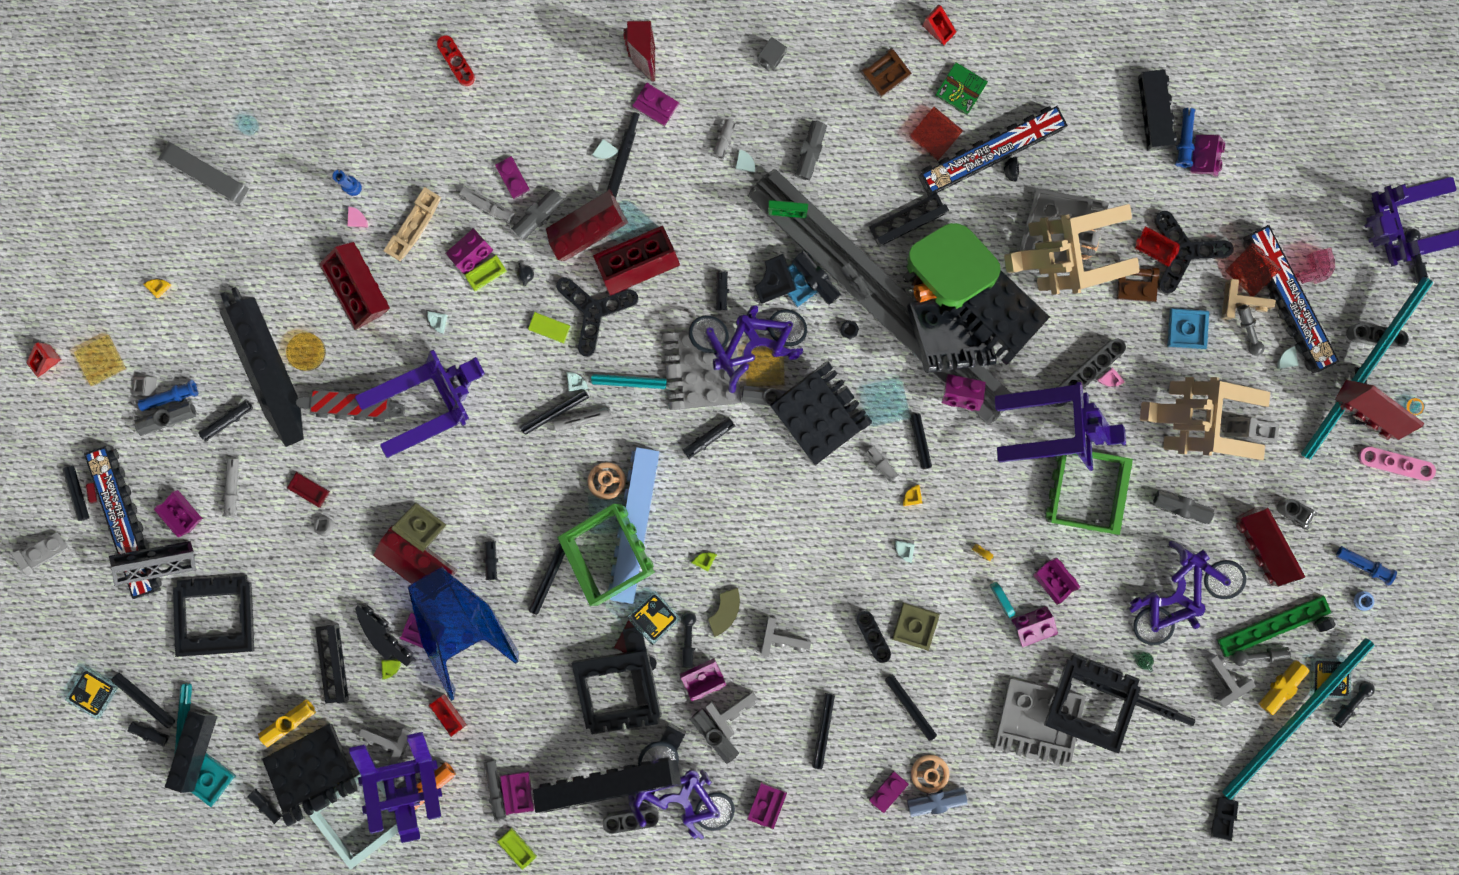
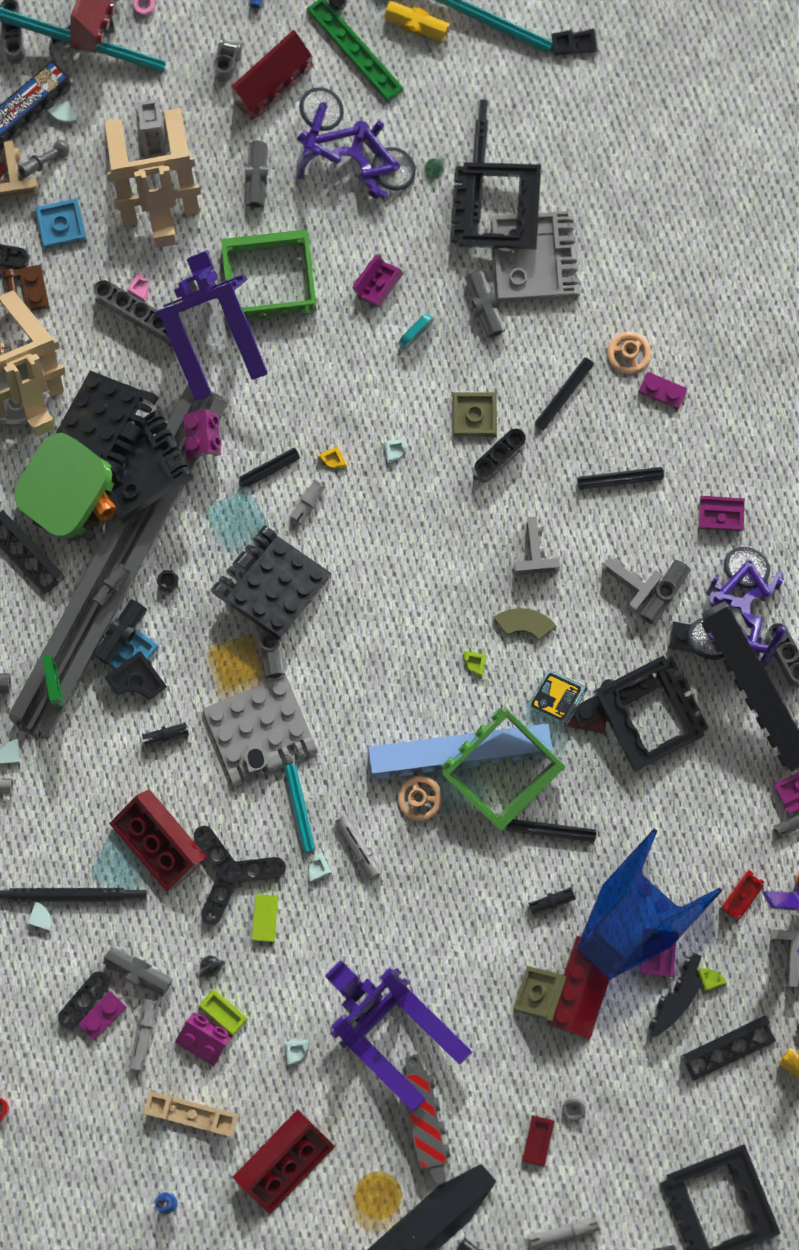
camera: 115 degrees left, 10 degrees down
(356, 218) = (203, 1185): bright pink tile -> none
(517, 158) = (100, 990): none -> black beam
(554, 411) = (360, 882): black axle -> none
(585, 226) = (135, 910): dark red slope -> none
(677, 357) = (256, 759): none -> tile
(688, 619) = (547, 660): black pin -> none
(703, 679) = (607, 622): magenta bracket -> none
(708, 438) = (343, 703): black pin -> none
(712, 335) = (221, 724): piece -> none
(937, 802) = (656, 336): sand blue piece -> none
(982, 552) = (371, 367): yellow tile -> none
(1009, 665) = (485, 304): none -> dark grey piece
(1035, 626) = (433, 289): magenta bracket -> none
(1233, 689) = (435, 70): light grey bracket -> none
(1241, 658) = (399, 70): dark grey pin -> none

